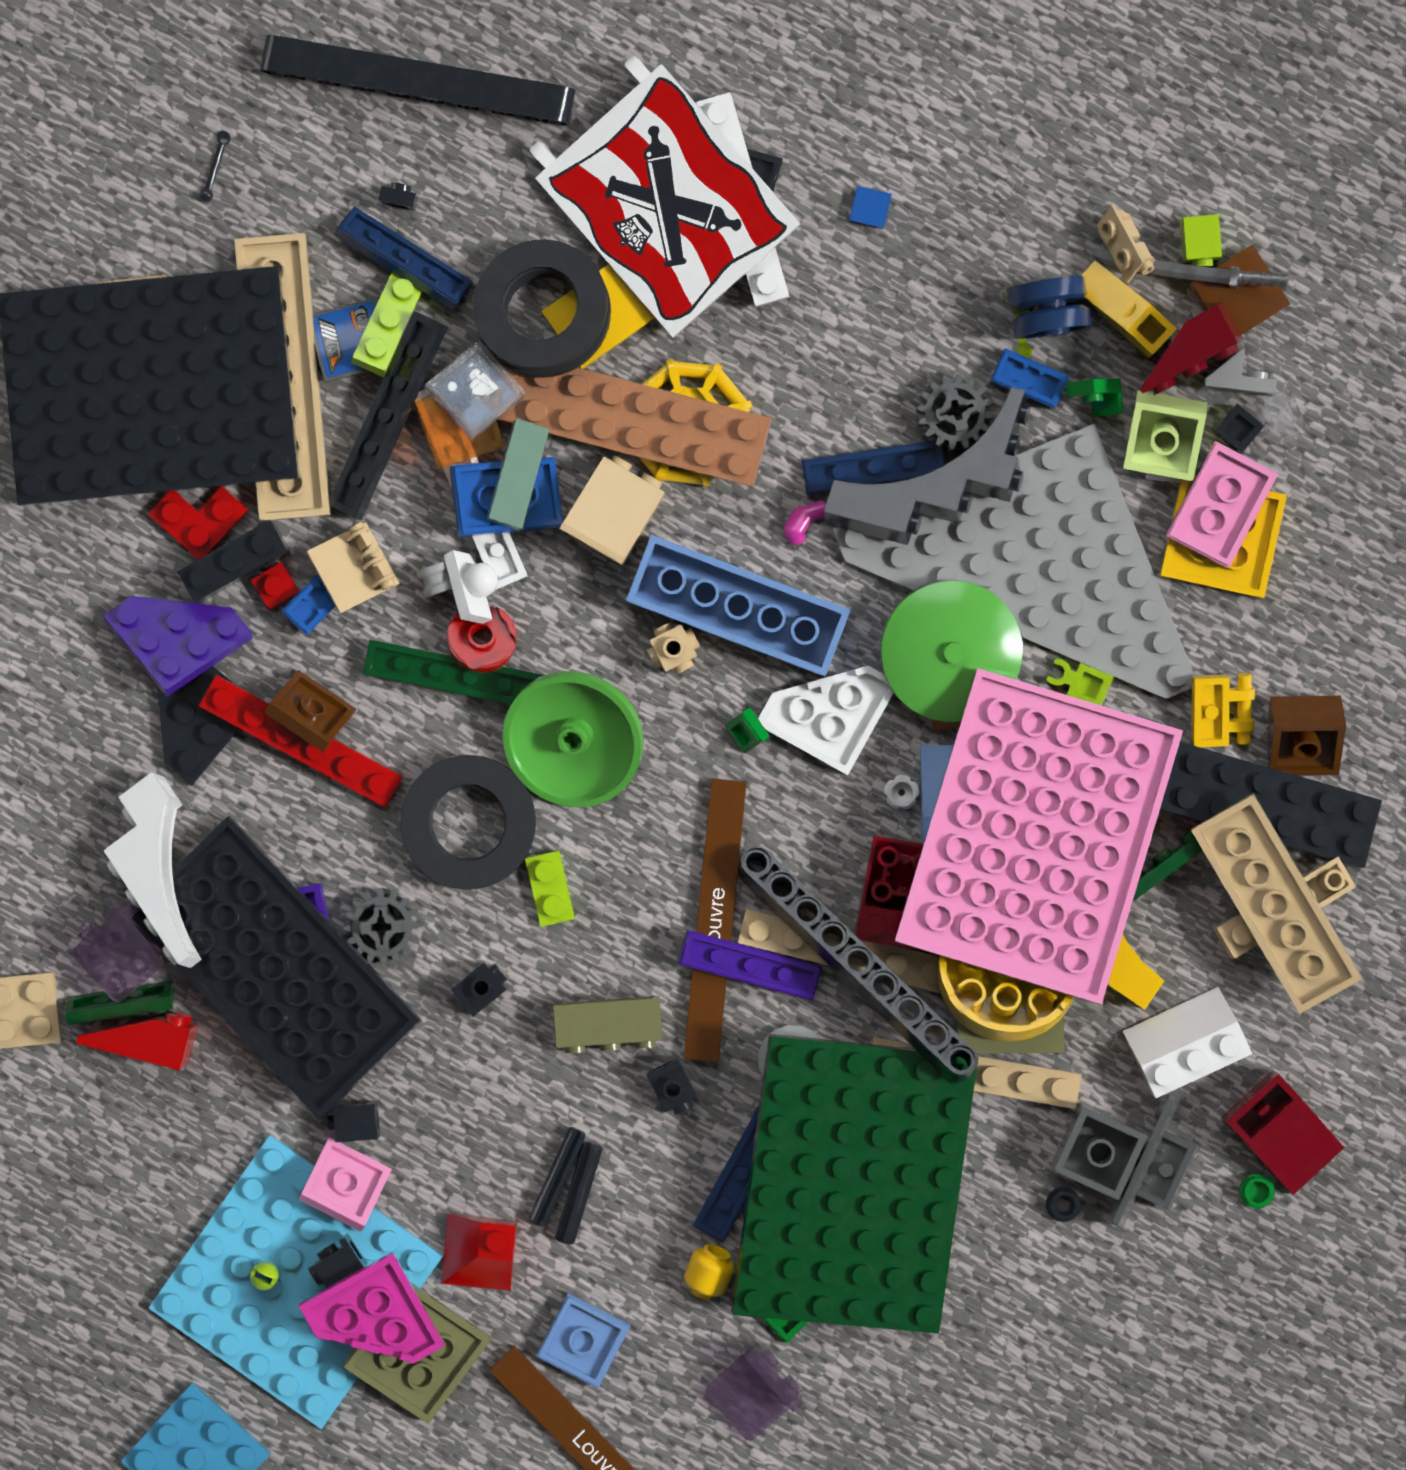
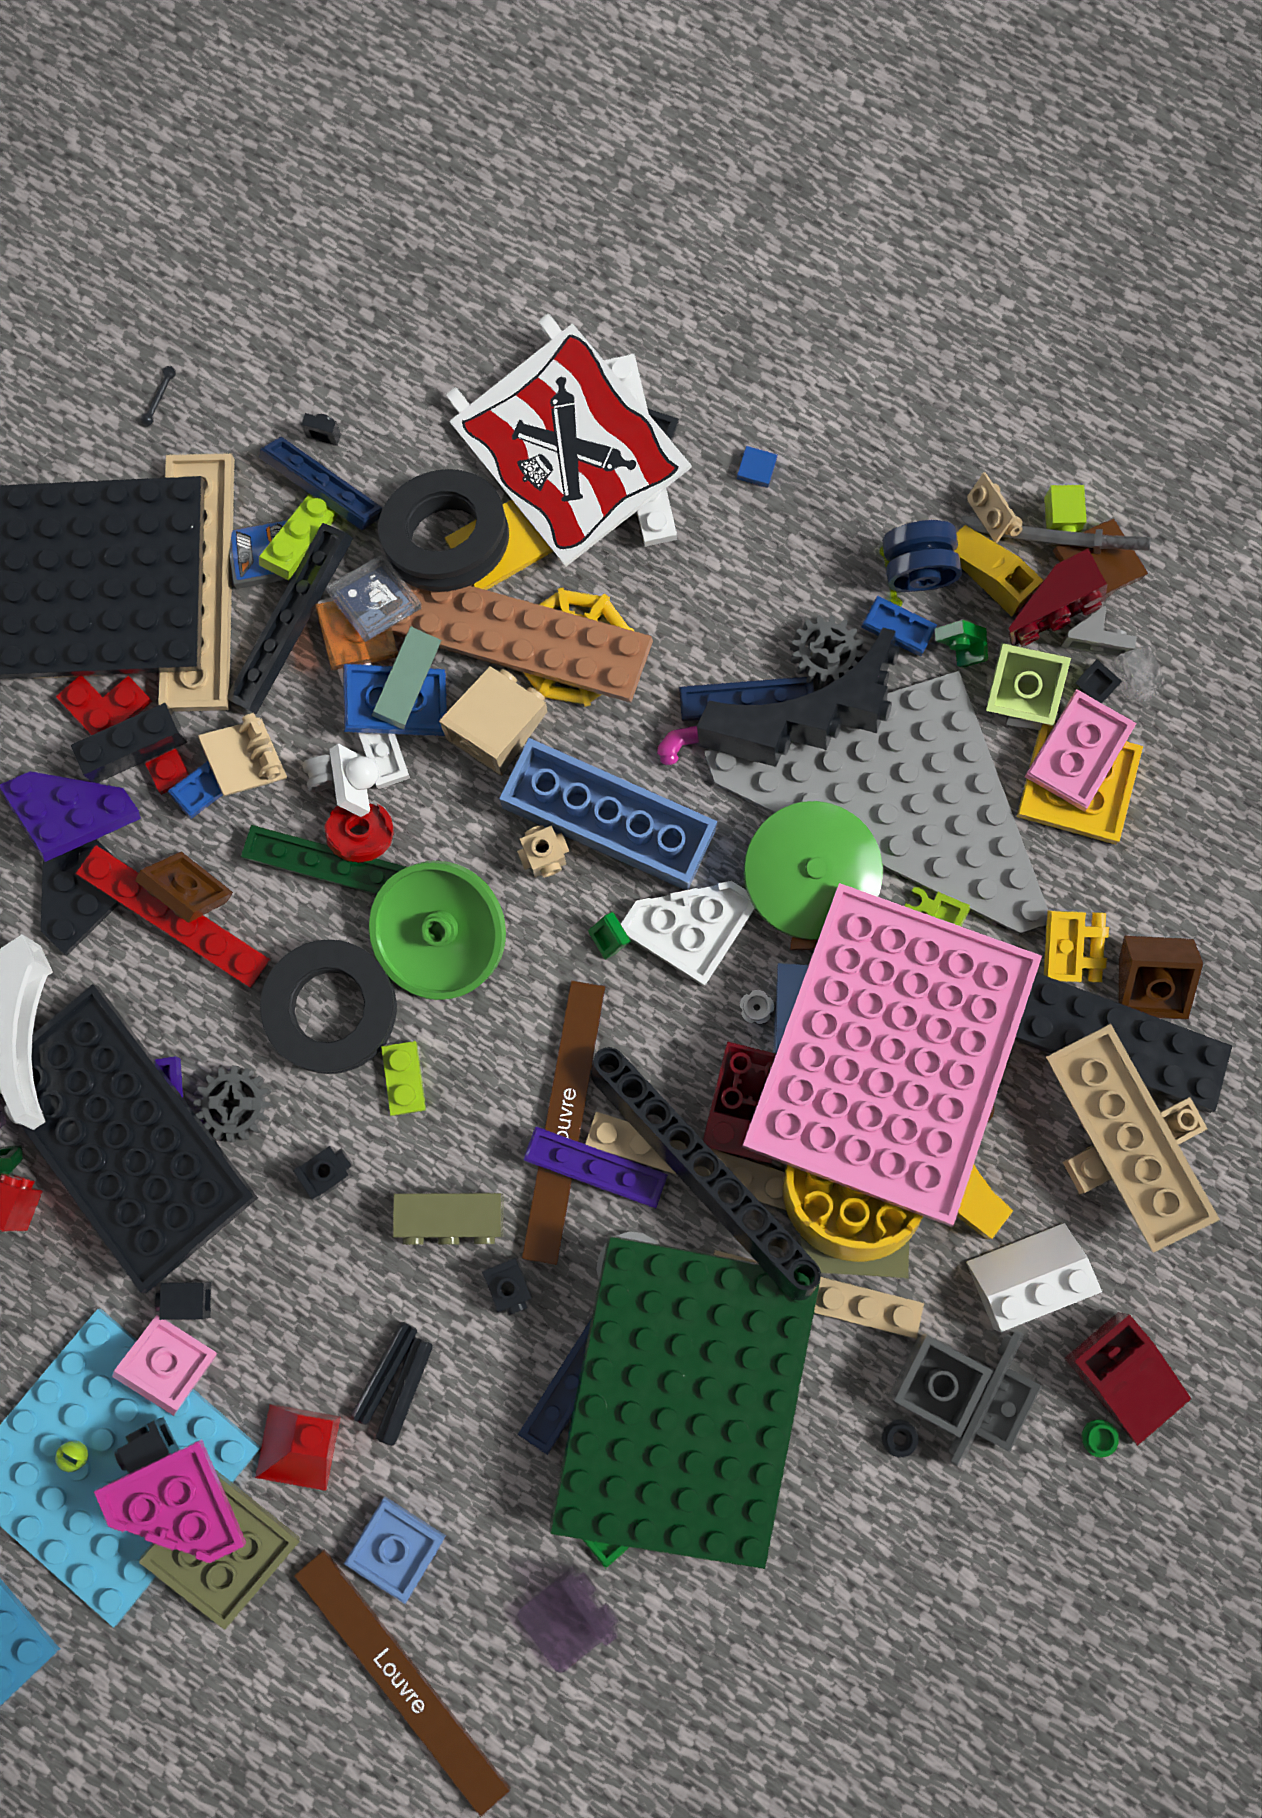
camera: 10 degrees right, 10 degrees down
(417, 78) = (350, 329): black beam -> none
(709, 1271) = (531, 1485): yellow head -> none
(1167, 862) = (1018, 1091): dark green plate -> none

